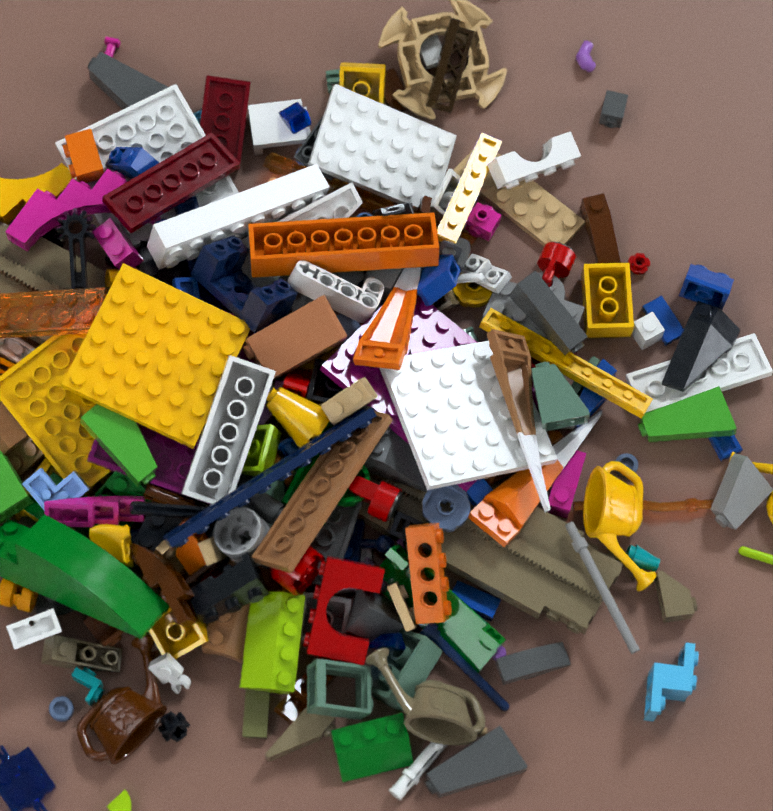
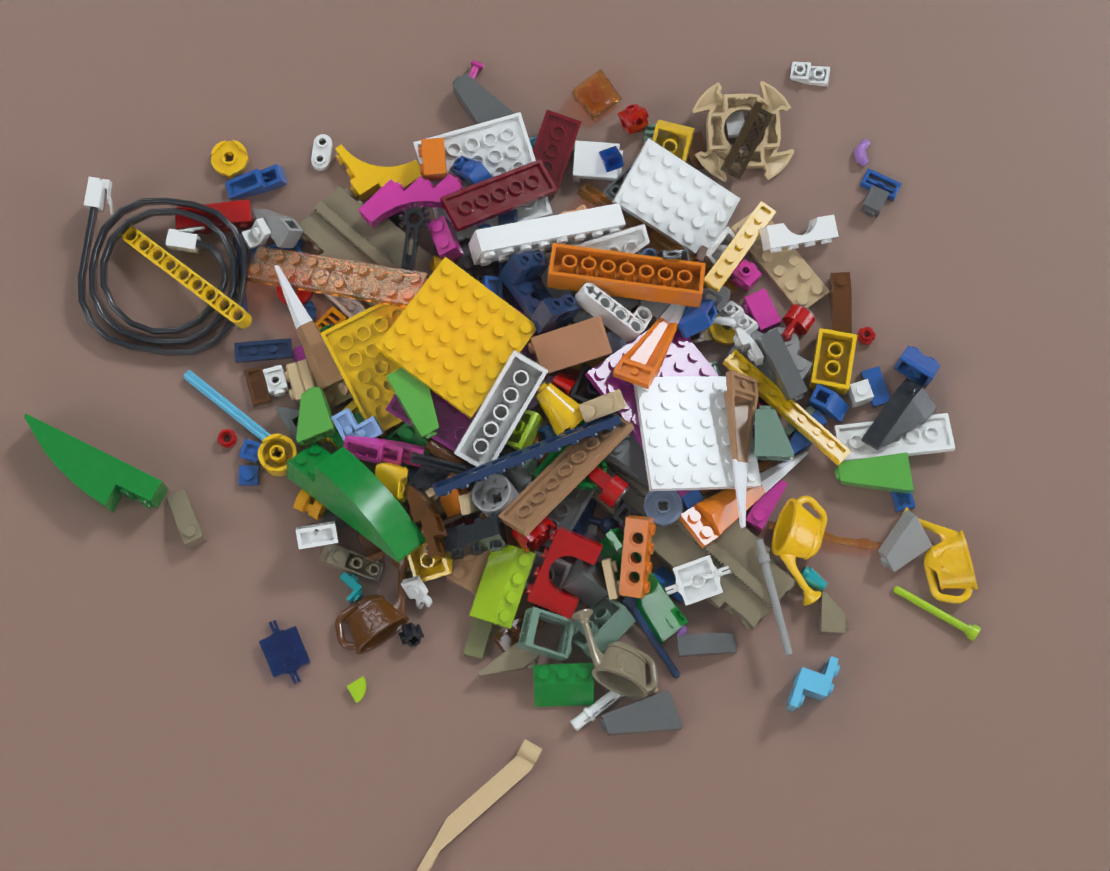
camera: 15 degrees right, 5 degrees up
(61, 709) = (327, 601): sand blue tile -> none
(260, 49) = (596, 94): none -> clear orange slope
(311, 68) = (633, 118): none -> red brick
(392, 641) = (594, 603): clear blue slope -> none
(503, 298) = (747, 344): none -> white slope
(507, 586) = (697, 580): none -> white plate
(510, 256) = (761, 310): none -> dark pink brick
(599, 89) = (864, 184): none -> blue tile
(613, 349) = (828, 403): none -> blue slope
(628, 460) = (820, 497): sand blue tile -> none

